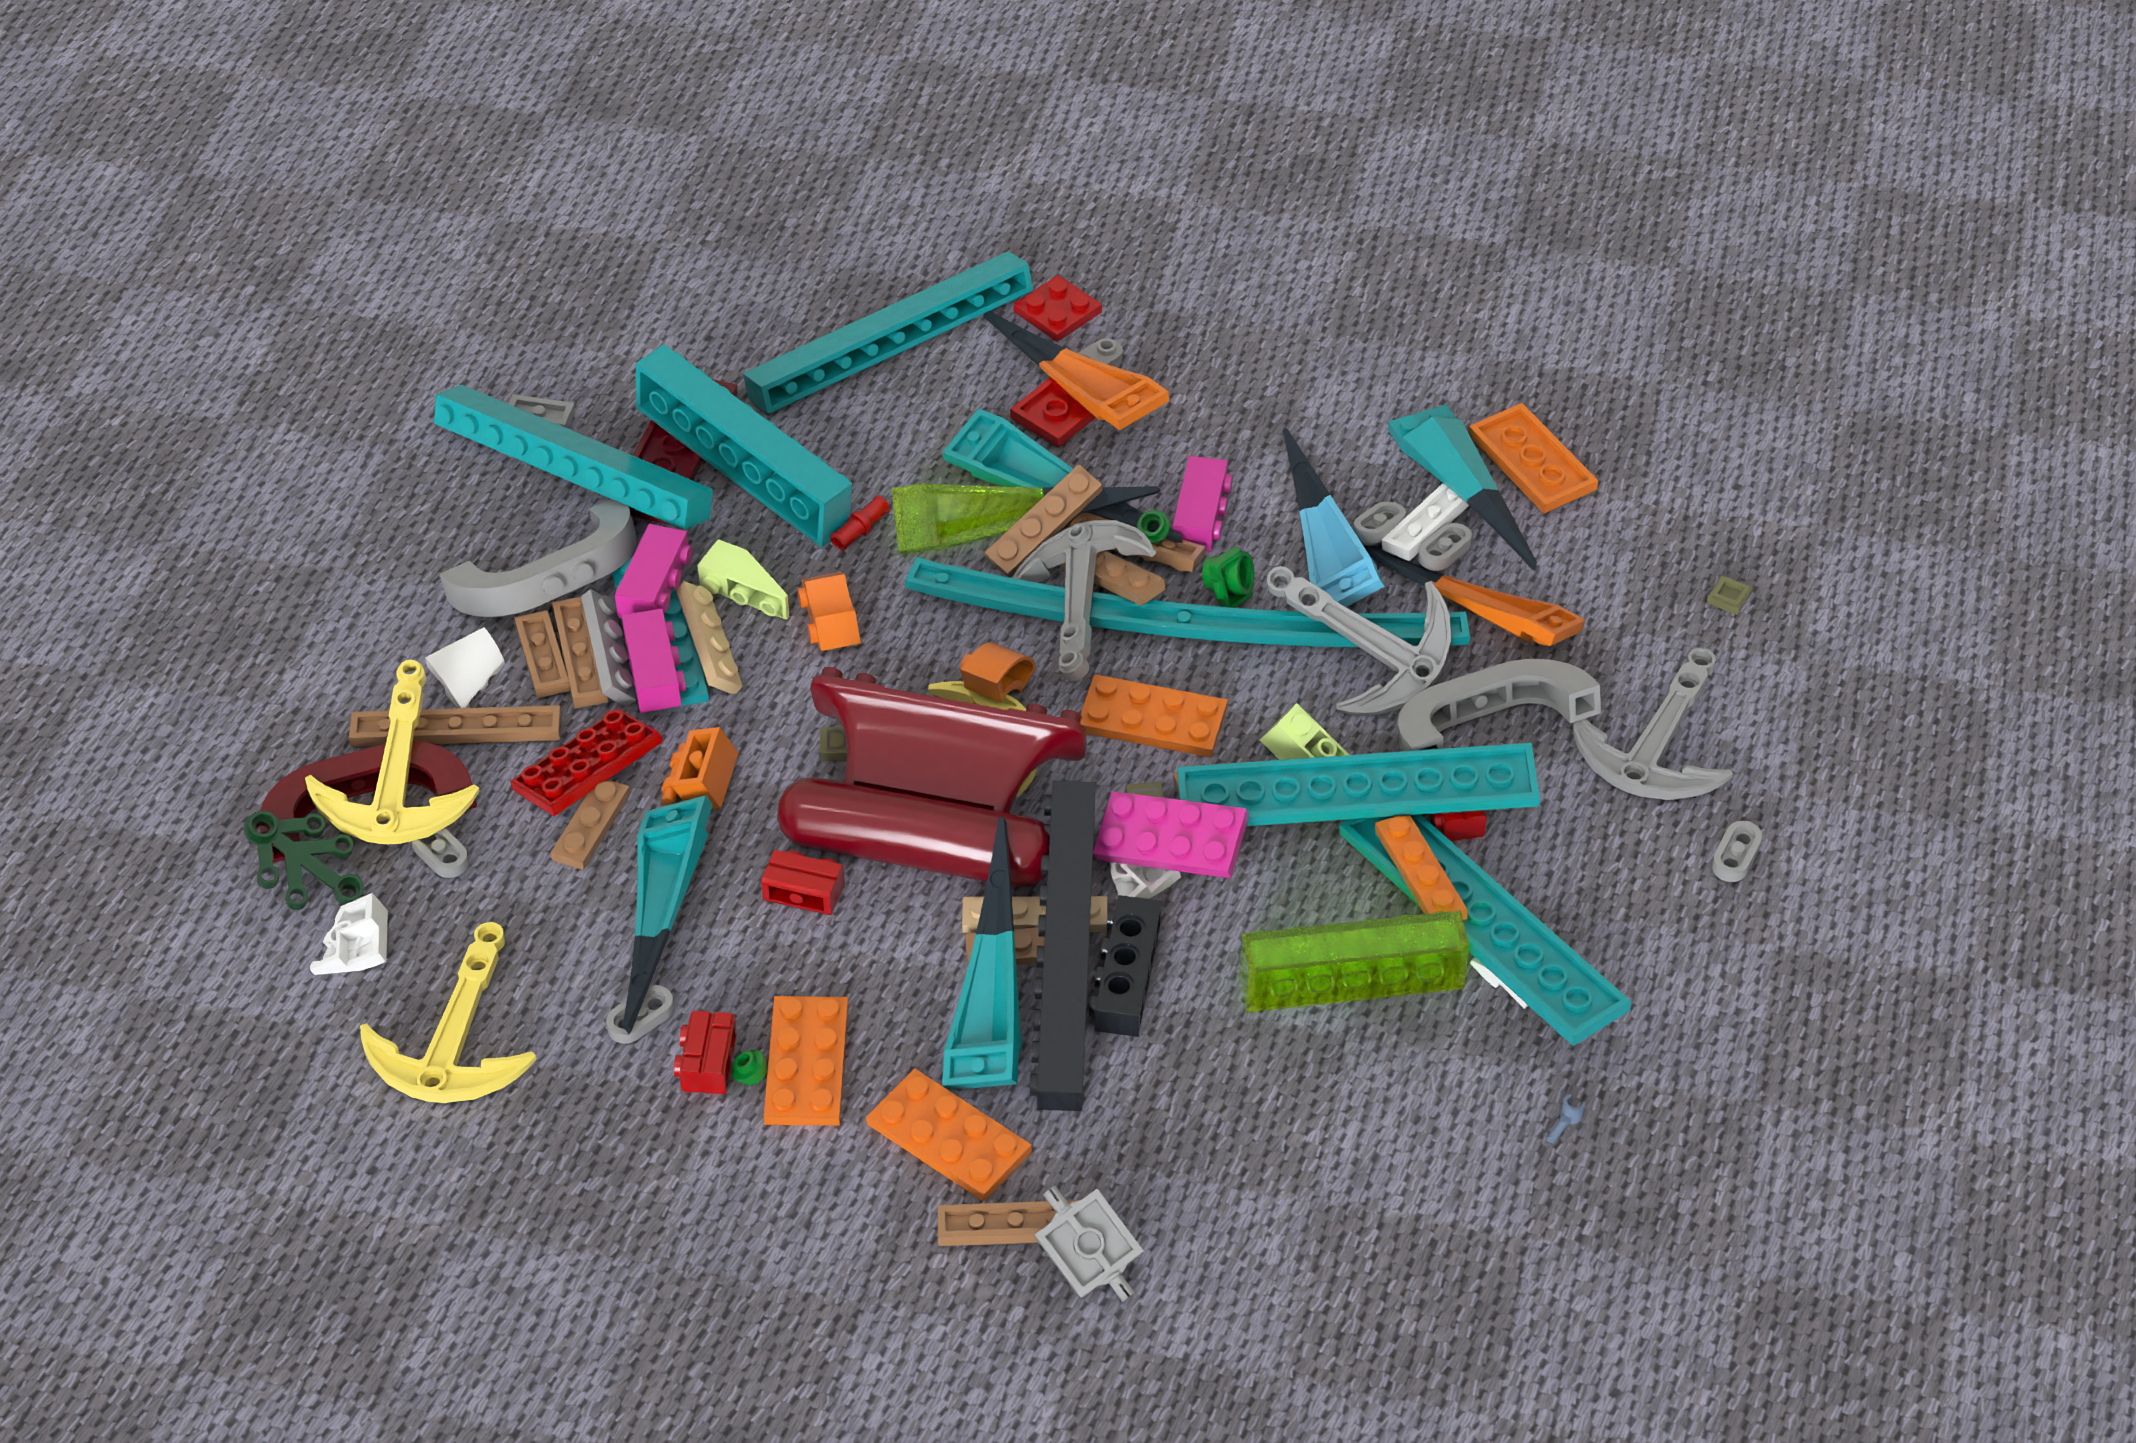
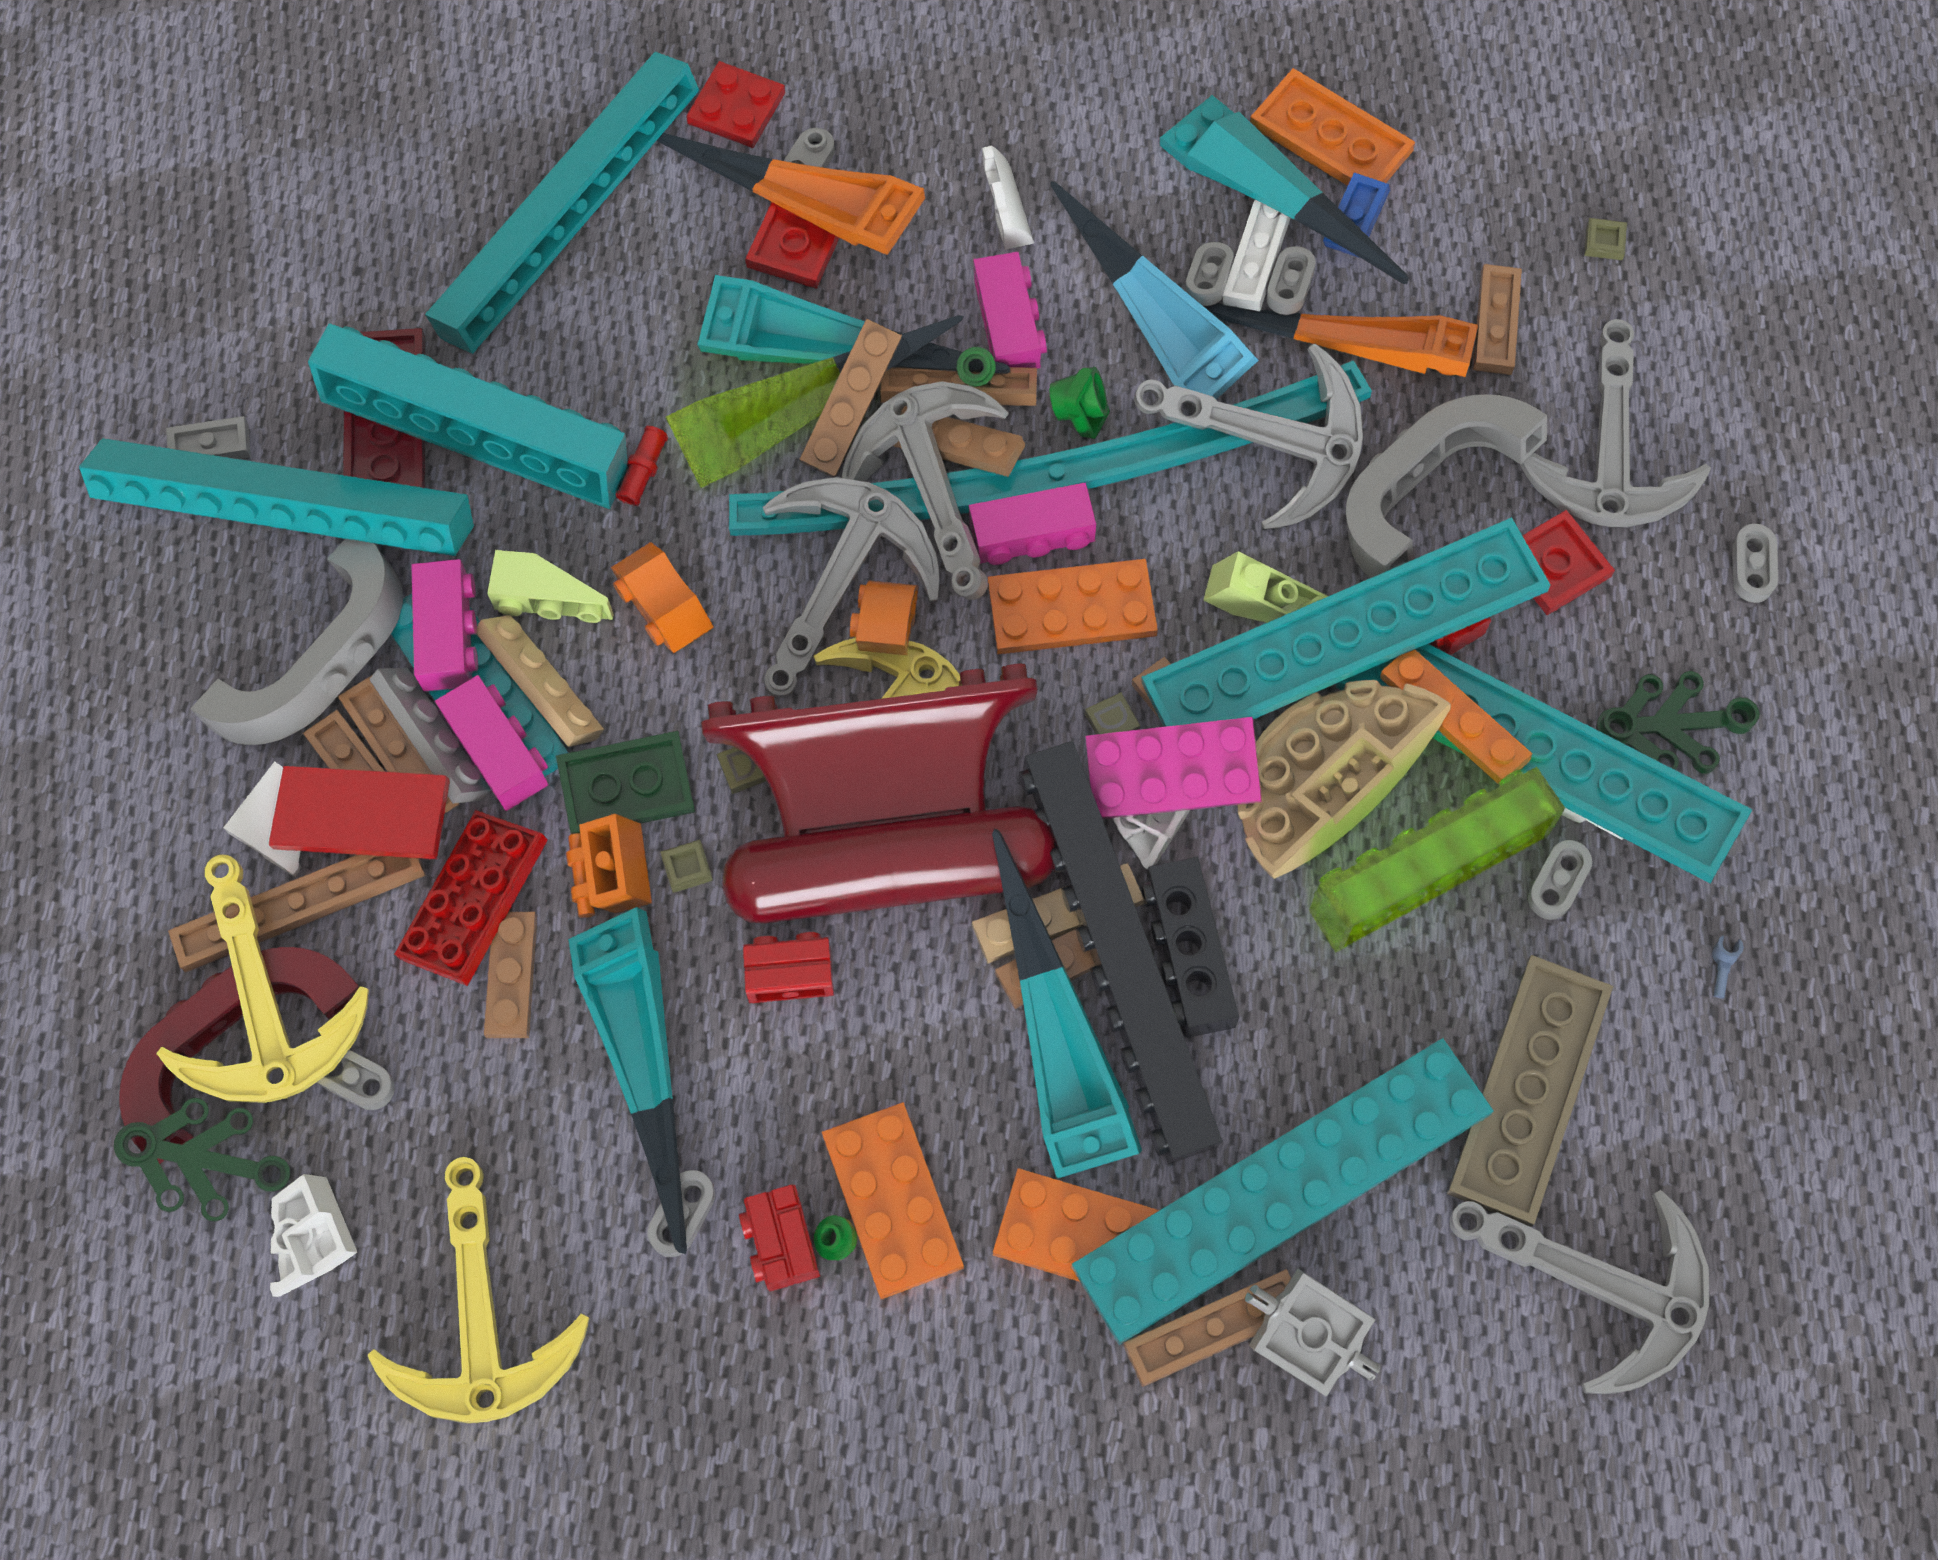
camera: 20 degrees left, 20 degrees up
(530, 675) = (359, 812): none -> red tile
(753, 722) = (630, 778): none -> dark green plate
(760, 794) = (686, 866): none -> olive tile
(994, 619) = (864, 527): none -> light grey piece
(1115, 1143) = (1280, 1190): none -> teal plate
(1147, 648) = (1032, 524): none -> dark pink brick
(1238, 425) = (1007, 202): none -> white slope
(1305, 879) = (1332, 765): none -> tan brick
(1355, 1149) = (1531, 1090): none -> dark tan plate
(1377, 1320) = (1684, 1288): none -> light grey piece
(1452, 1016) = (1560, 882): none -> light grey plate
(1528, 511) = (1361, 204): none -> blue plate
(1570, 802) = (1567, 560): none -> red plate
(1605, 622) = (1497, 319): none -> medium nougat plate
(1608, 939) = (1671, 725): none -> dark green plant

